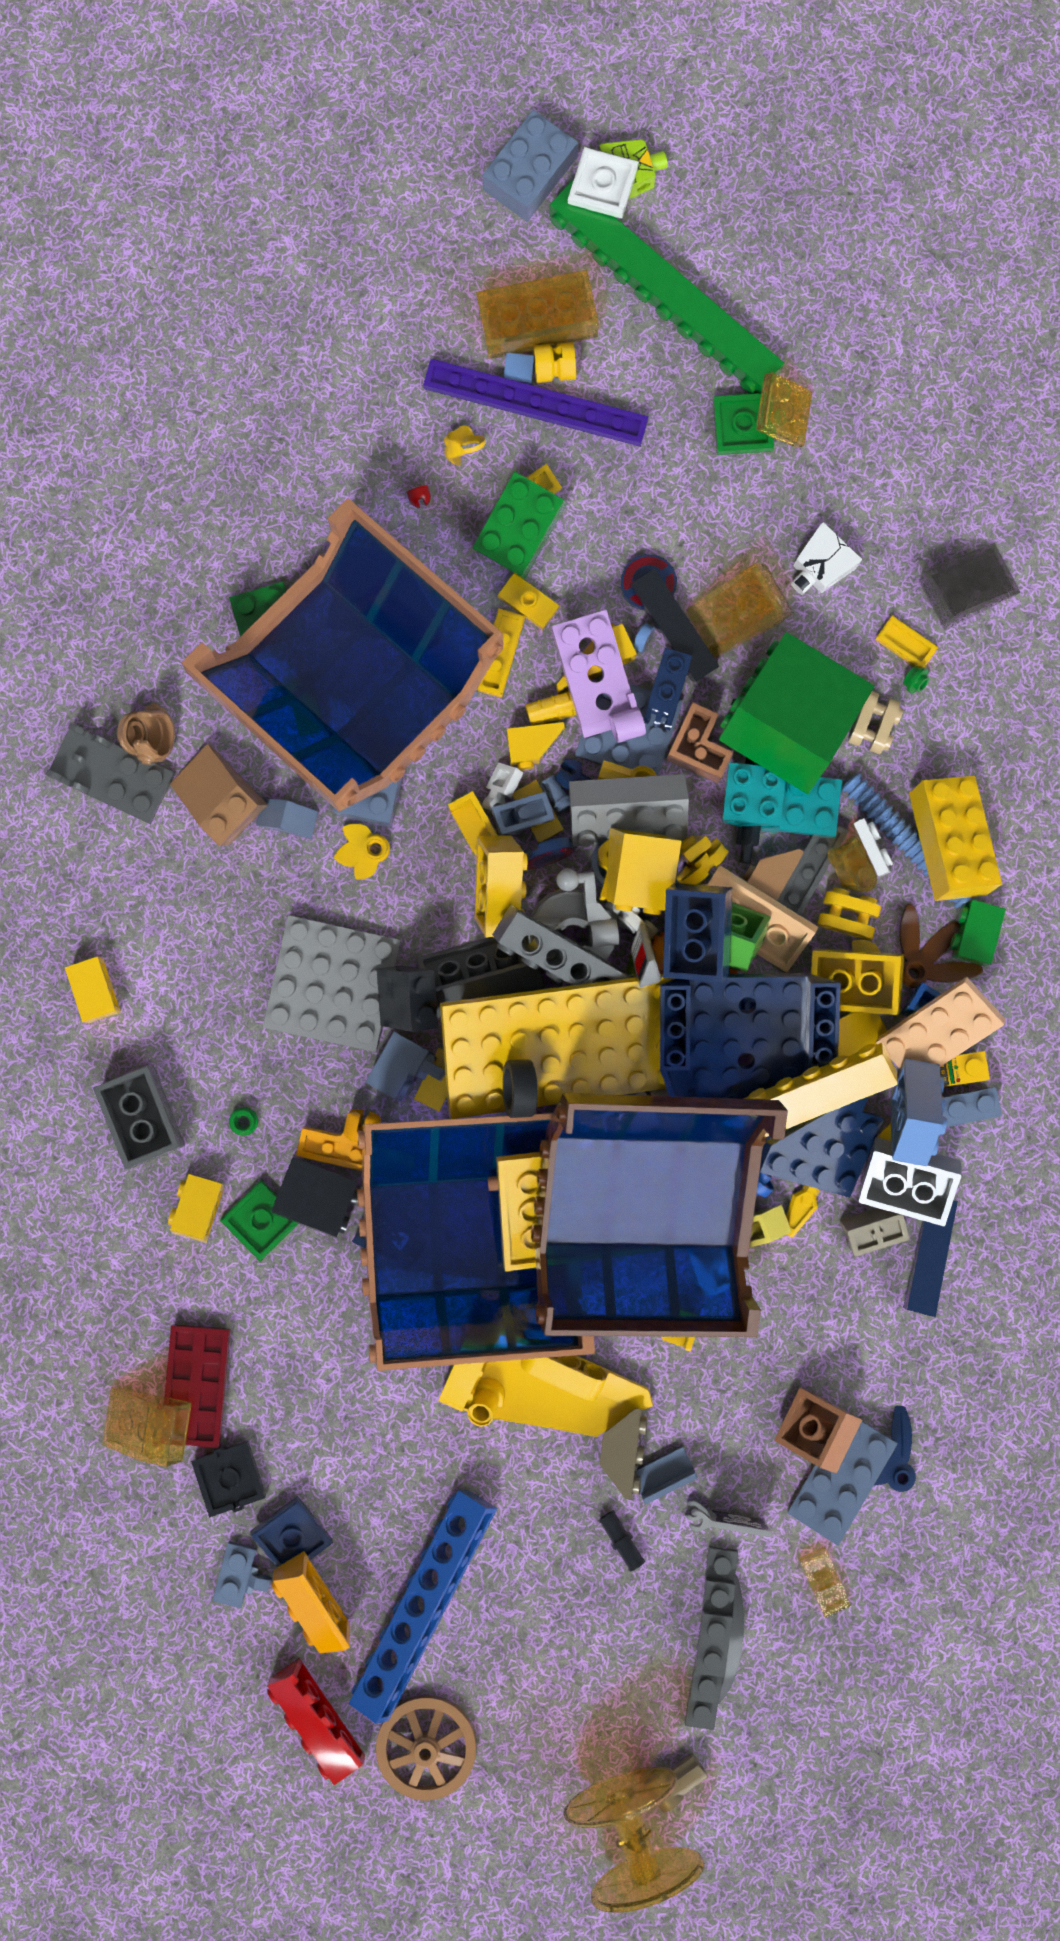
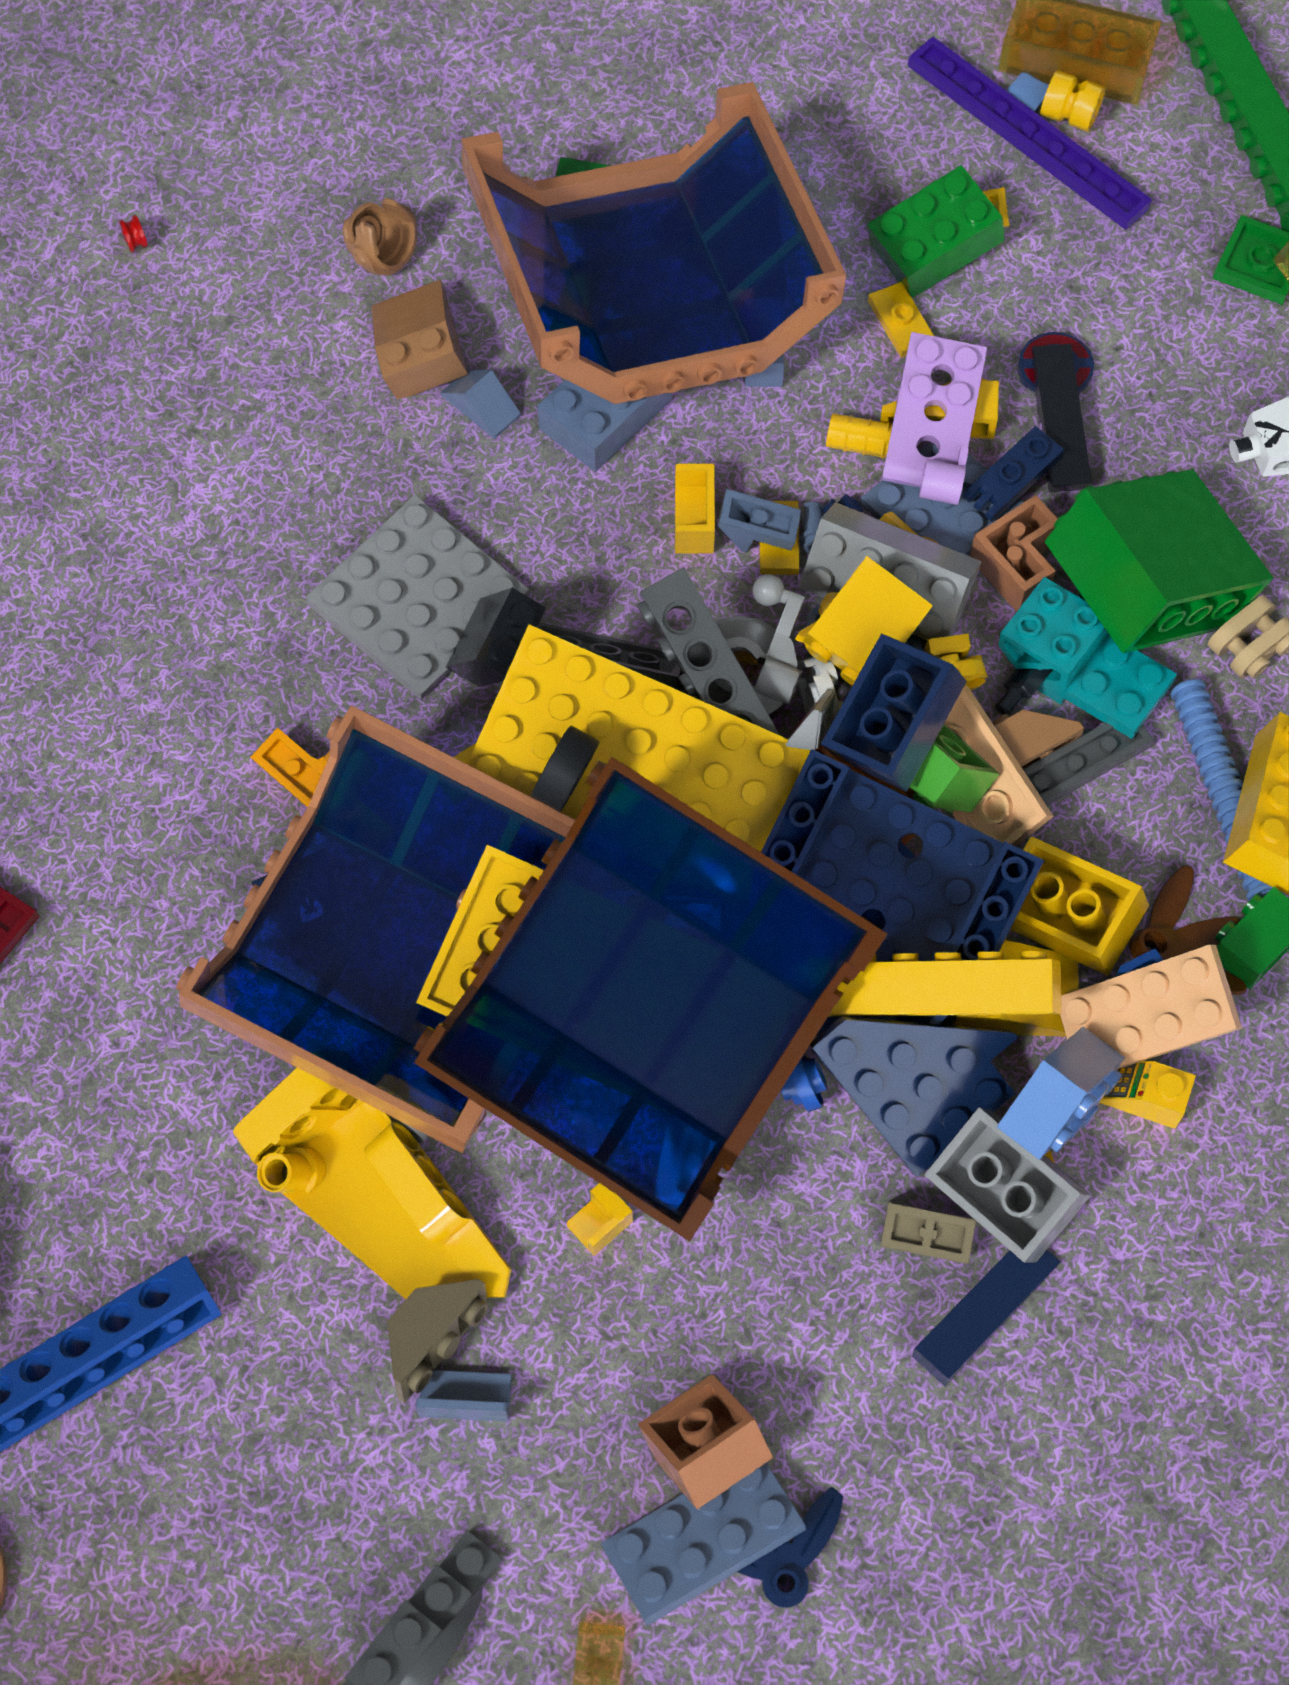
camera: 30 degrees right, 20 degrees down
(92, 989) = (139, 462): yellow panel -> none
(110, 774) = (312, 263): dark grey hinge -> none
(139, 1117) = (97, 616): dark grey brick -> none
(195, 1208) = (93, 751): yellow brick -> none
(234, 1121) = (210, 681): green plate -> none
(254, 1224) = (160, 812): green tile -> none
(315, 1198) = (237, 811): black brick -> none
(358, 850) = (540, 476): yellow plate -> none
(399, 1066) = (441, 717): sand blue hinge -> none
(418, 493) = (839, 152): red hinge -> none
(458, 437) = (913, 125): yellow piece -> none
(496, 677) = (835, 355): yellow tile -> none
(498, 880) = (695, 546): yellow brick -> none
(501, 785) = (758, 482): white plate -> none
(532, 743) = (818, 459): yellow slope -> none
(549, 852) = (745, 567): dark blue tile -> none
(621, 1541) = (356, 1452): black pin -> none
(643, 637) = (1016, 415): medium blue tile -> none
(726, 1521) = (492, 1478): light grey flag -> none
(740, 610) = (1151, 438): clear yellow slope -> none
(769, 1226) = (781, 1147): light yellow slope -> none
(801, 1208) = (844, 1158): yellow piece -> none
(849, 862) = (1137, 773): clear yellow piece -> none
(864, 907) = (1103, 834): yellow brick -> none
(869, 835) = (1176, 765): white plate -> none
(972, 1106) = (1136, 1141): sand blue brick -> none

